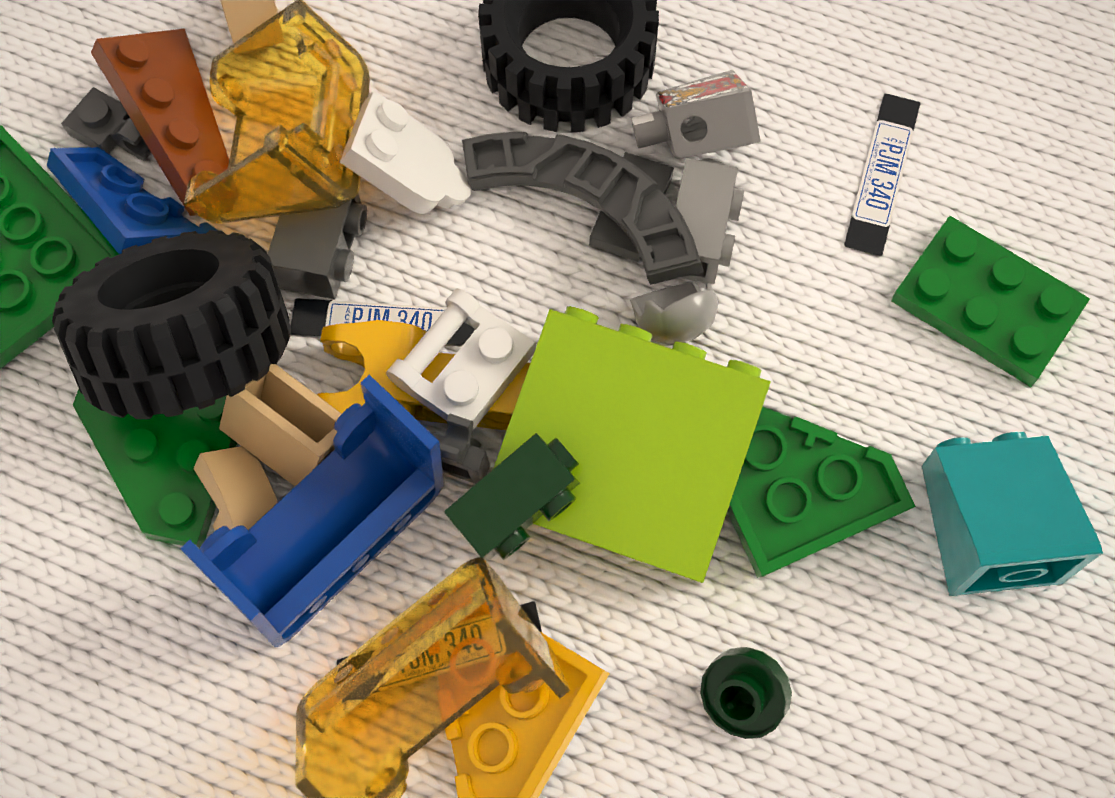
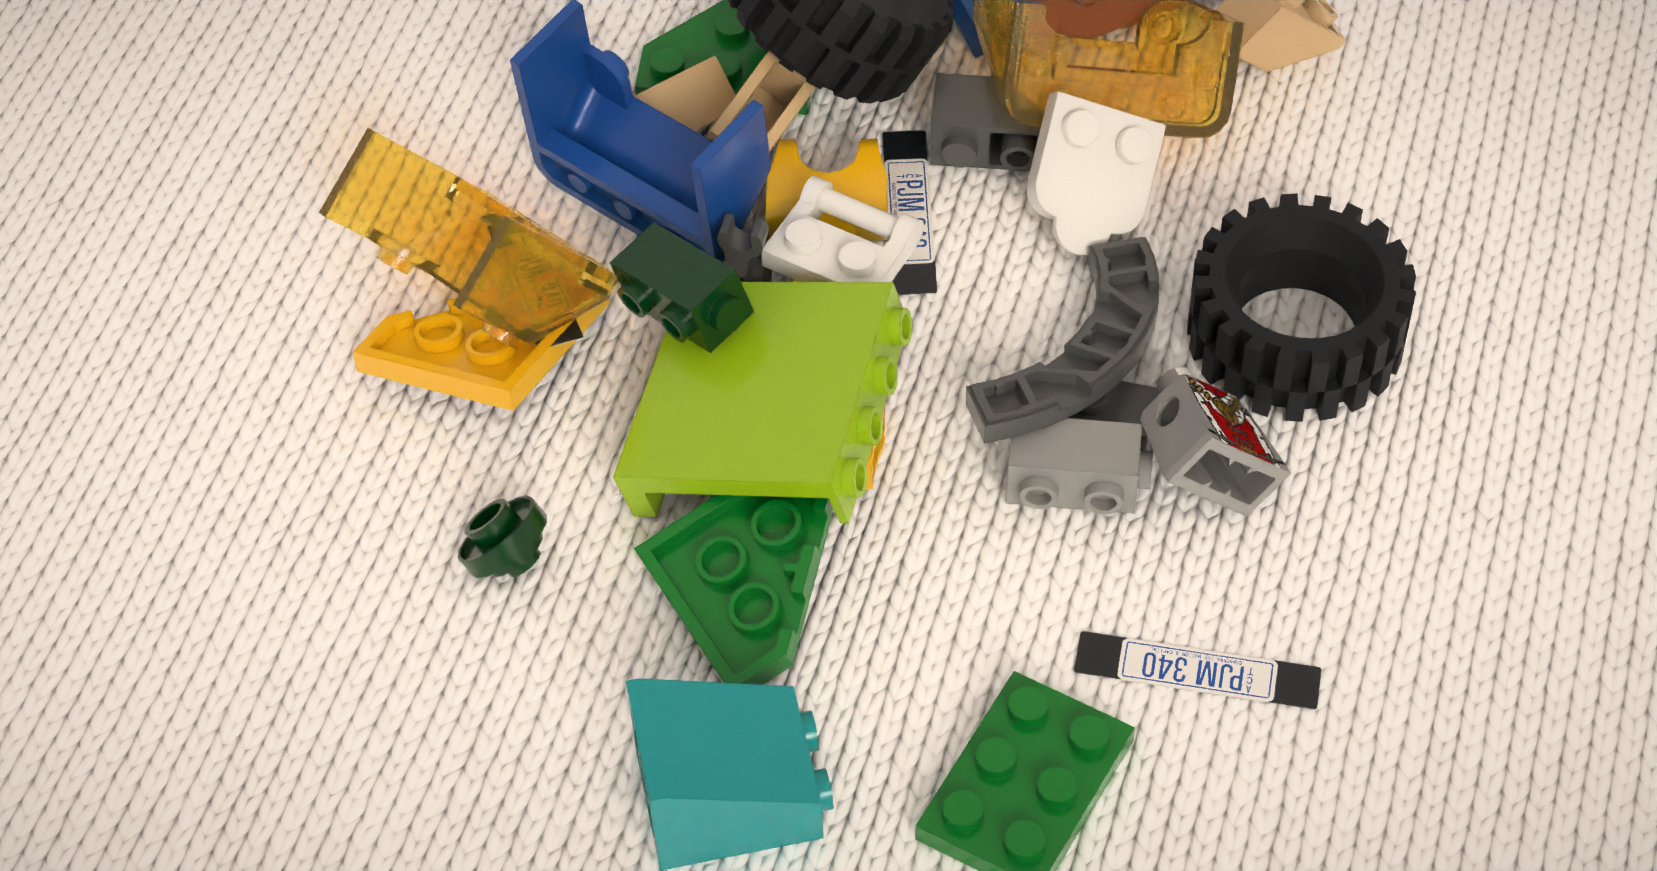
camera: 85 degrees right, 15 degrees down
(676, 312) = (945, 443): light grey hair -> none

